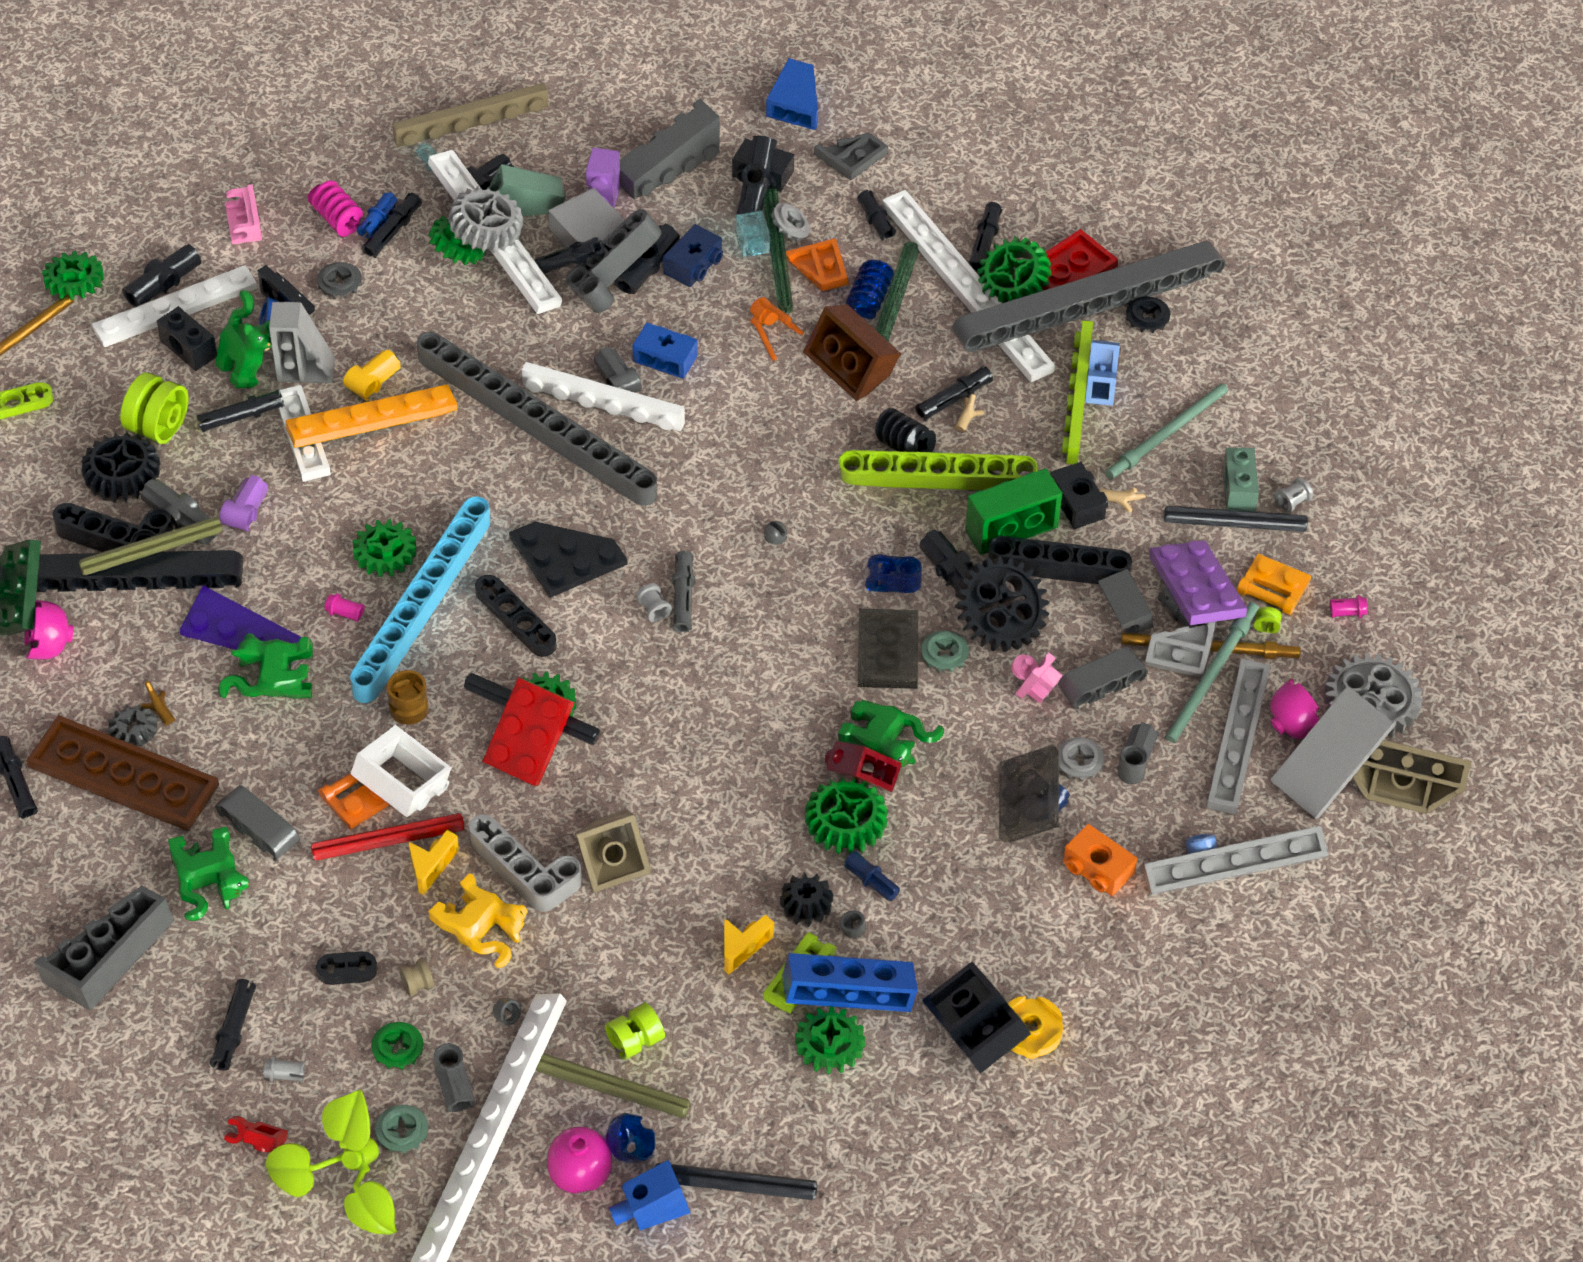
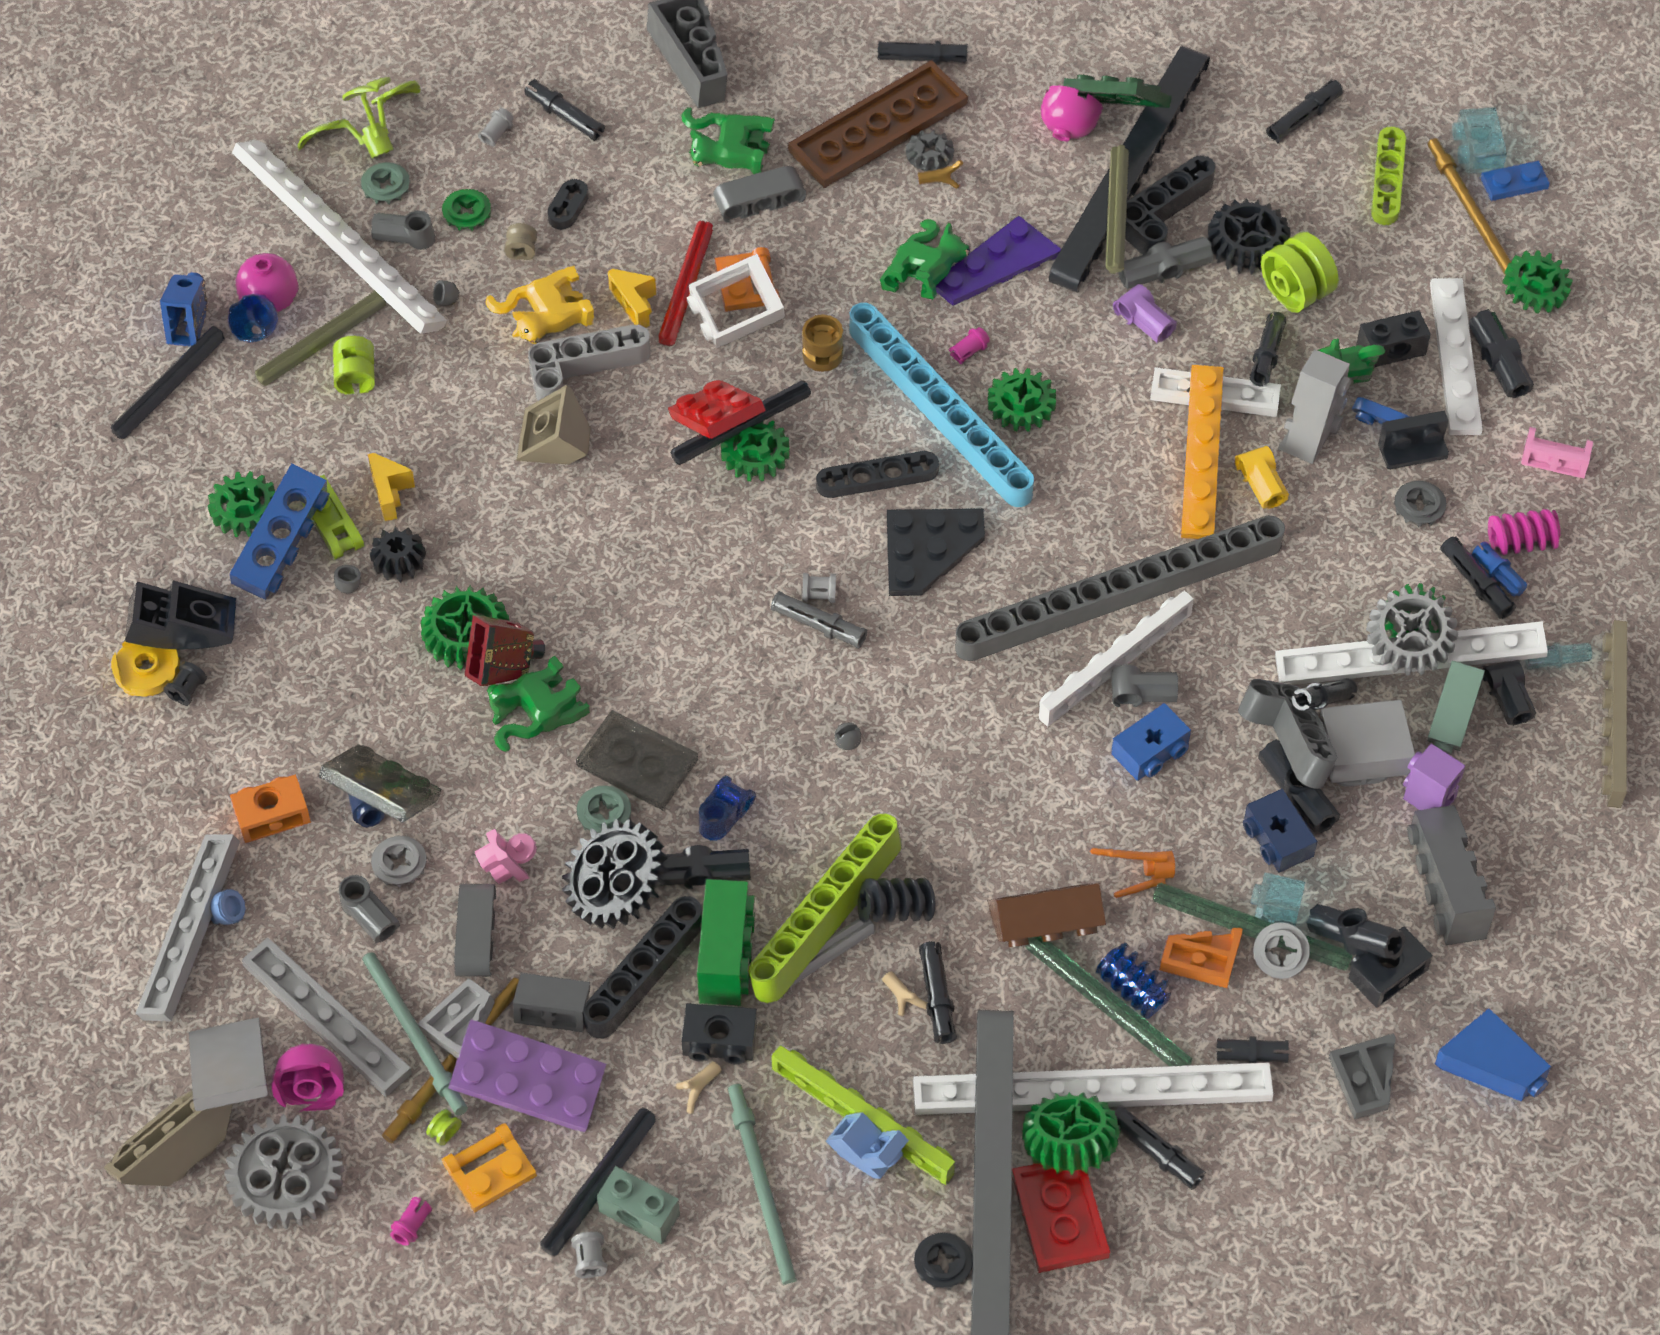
camera: 120 degrees right, 5 degrees up
(259, 1134) = (443, 88): red plate -> none
(871, 876) = (388, 620): dark blue axle -> none
(1030, 984) = (188, 673): none -> black bush

